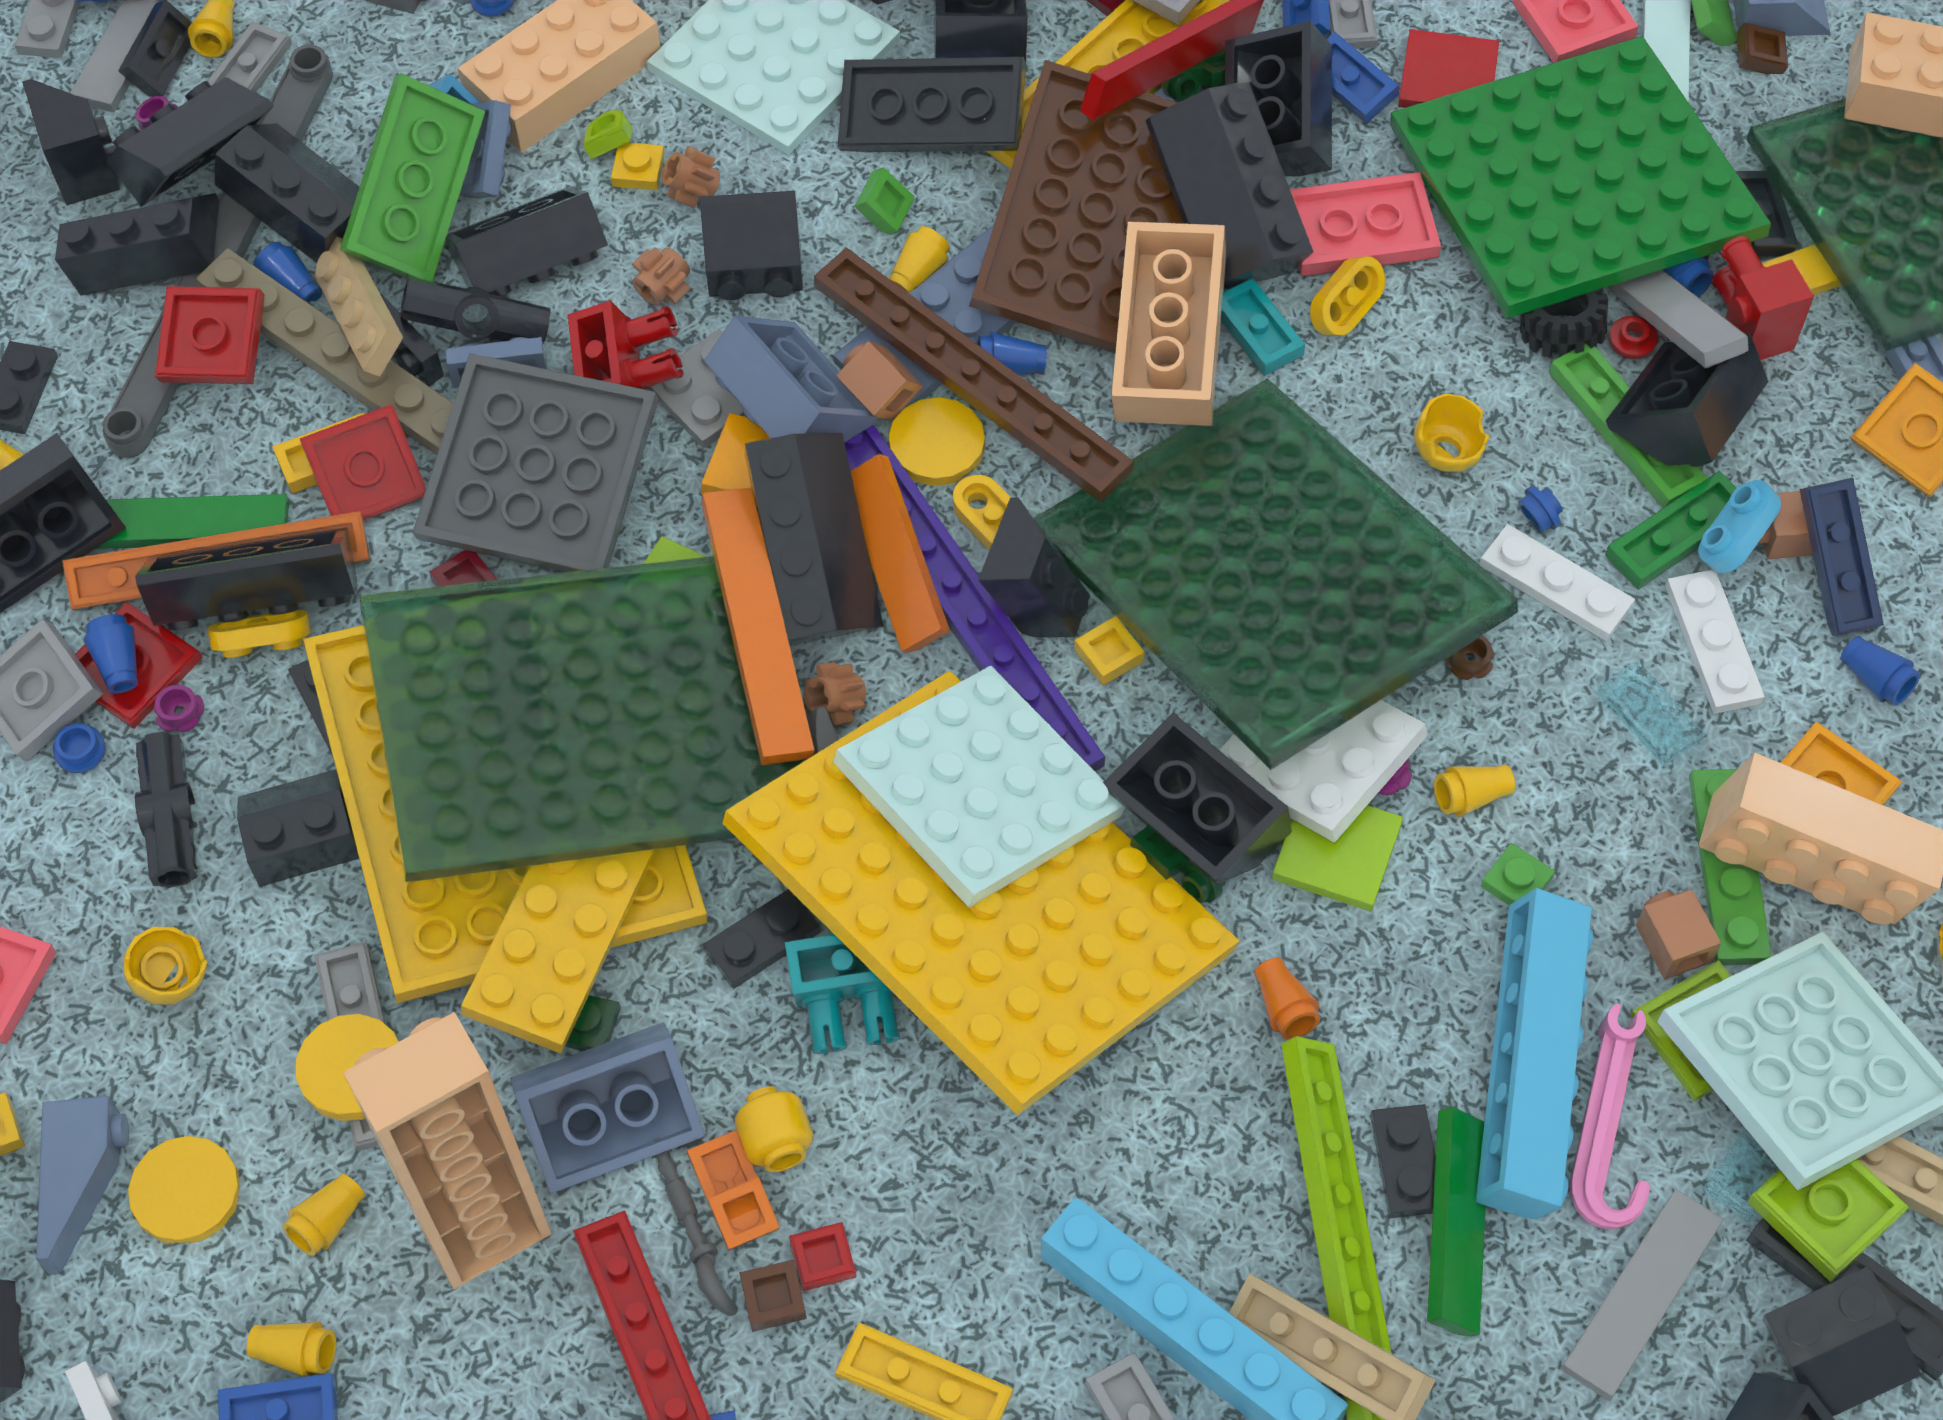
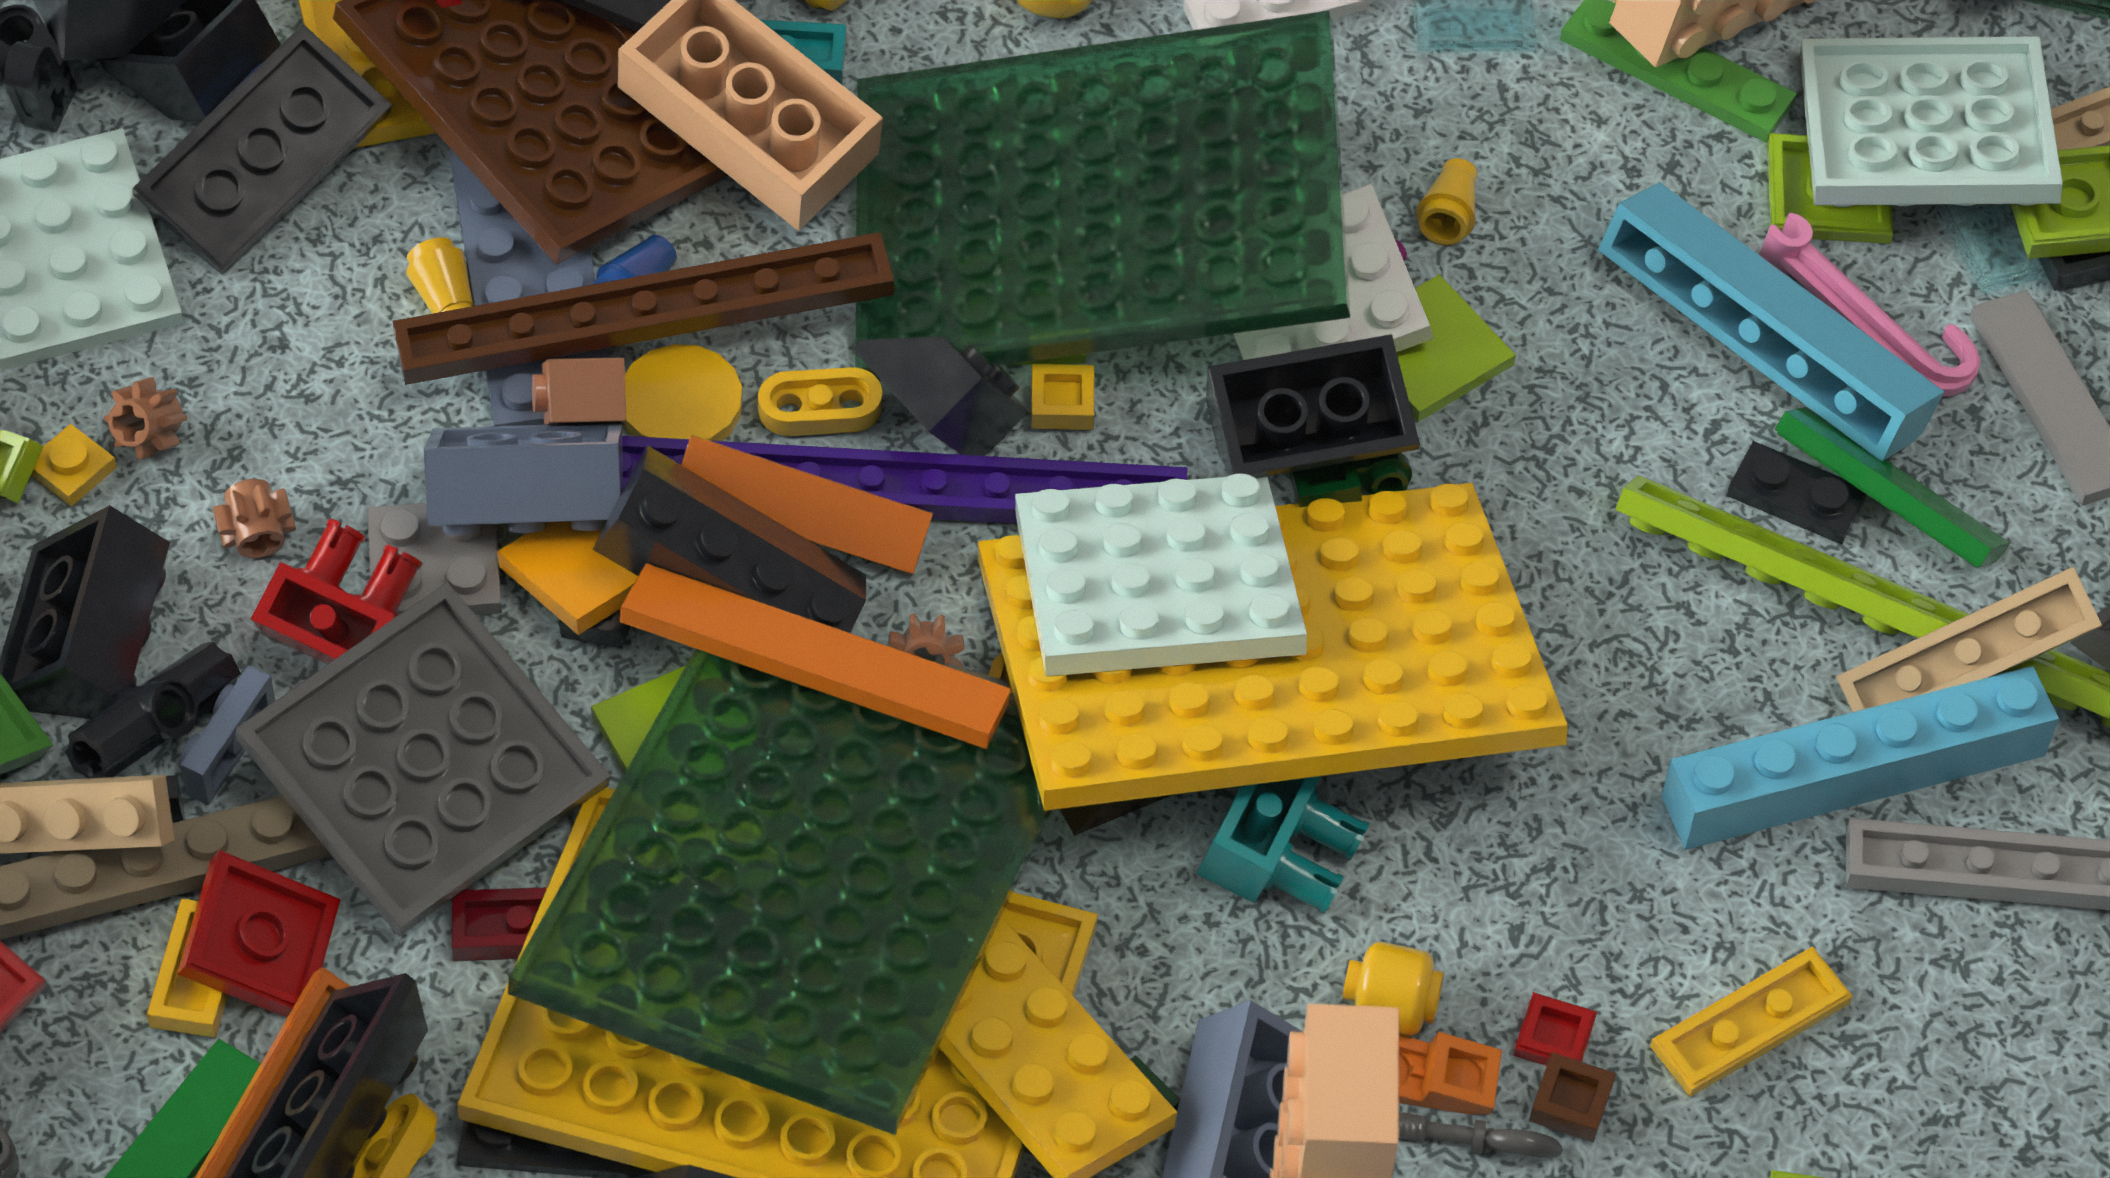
camera: 60 degrees left, 5 degrees down
(751, 244) = (303, 408): black slope -> none
(760, 938) = (1154, 888): black plate -> none
(884, 201) = (339, 267): bright green plate -> none
(1286, 1000) = (1563, 482): orange cone -> none
(1516, 875) = (1568, 229): bright green plate -> none
(1677, 933) = (1723, 142): nougat brick -> none

